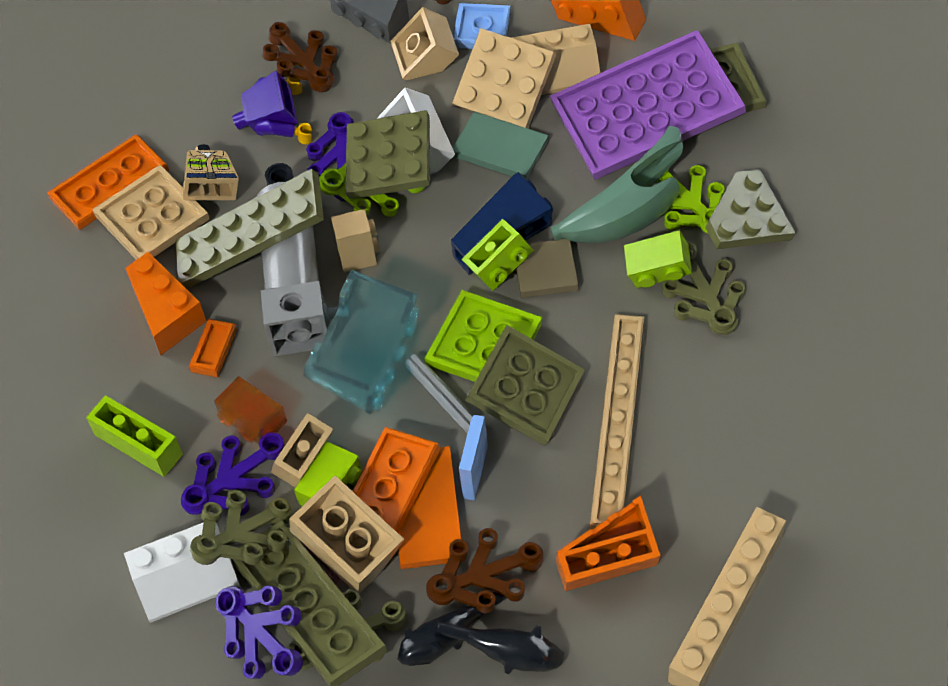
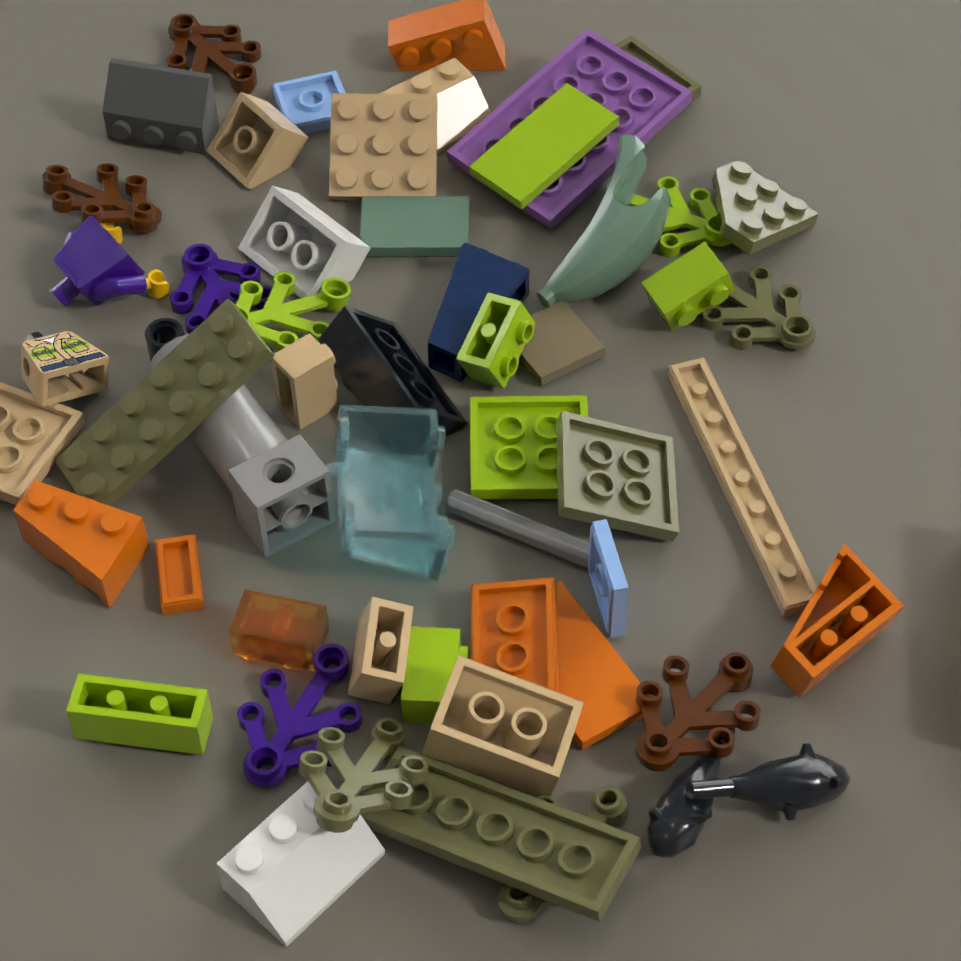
camera: 30 degrees left, 5 degrees down
(233, 605) = (448, 889): dark purple plant -> none
(388, 154) = (295, 268): olive plate -> none
(419, 253) = (385, 367): none -> black slope
(616, 114) = (544, 146): none -> lime tile

